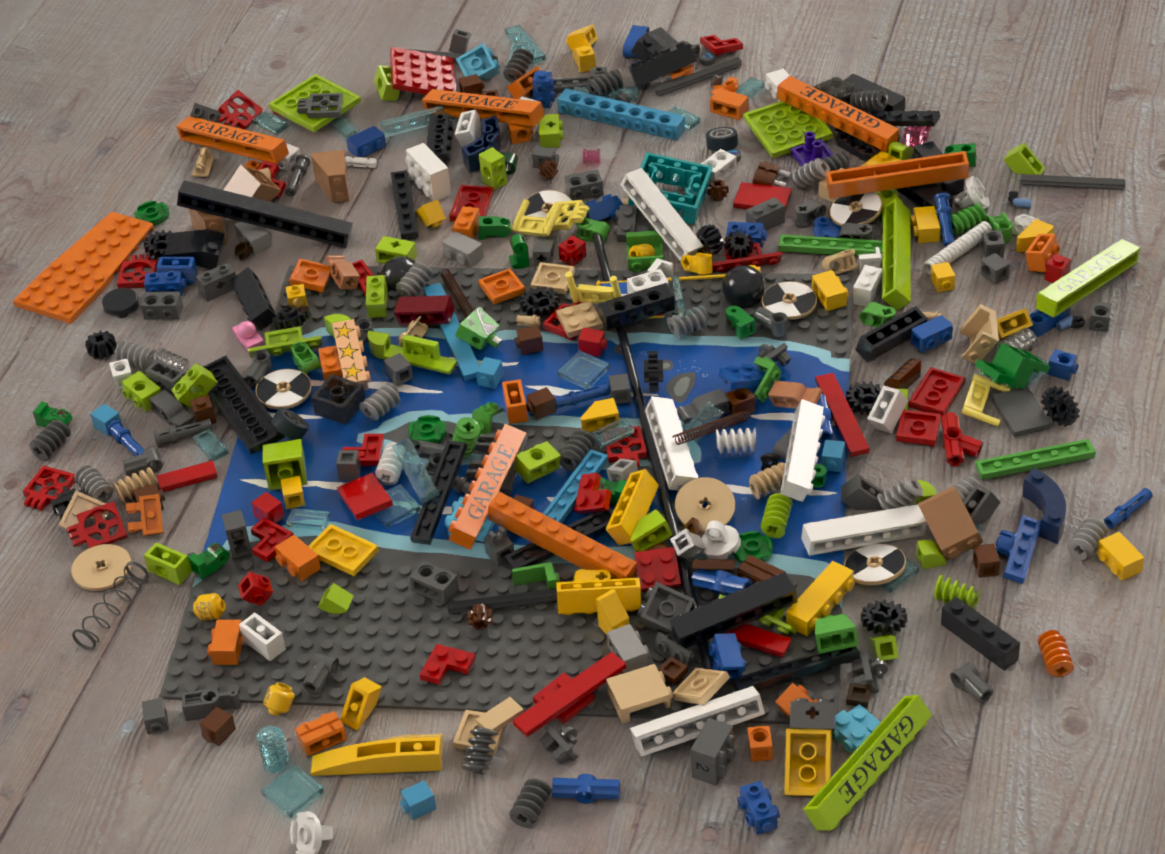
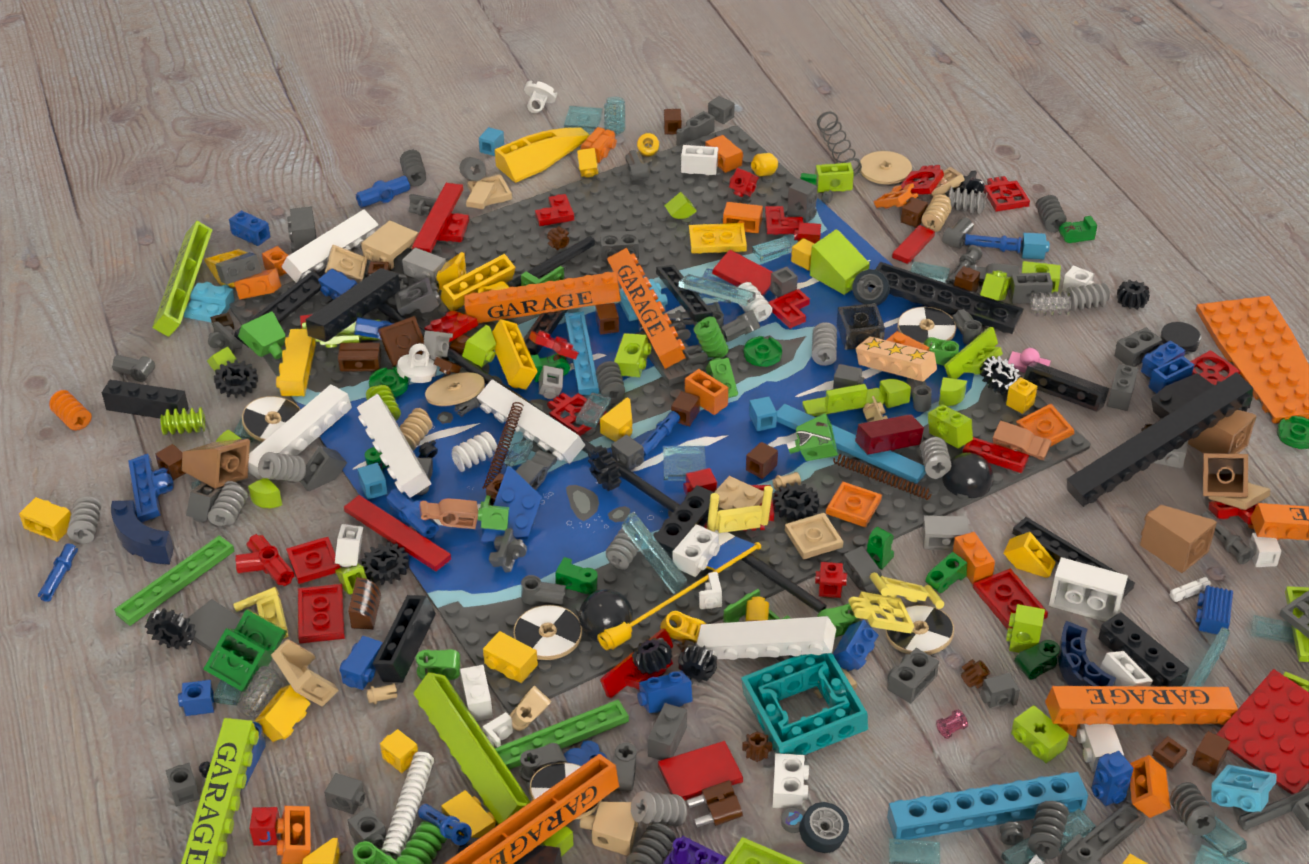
camera: 140 degrees right, 0 degrees up
(393, 247) = (1006, 498): lime brick -> none

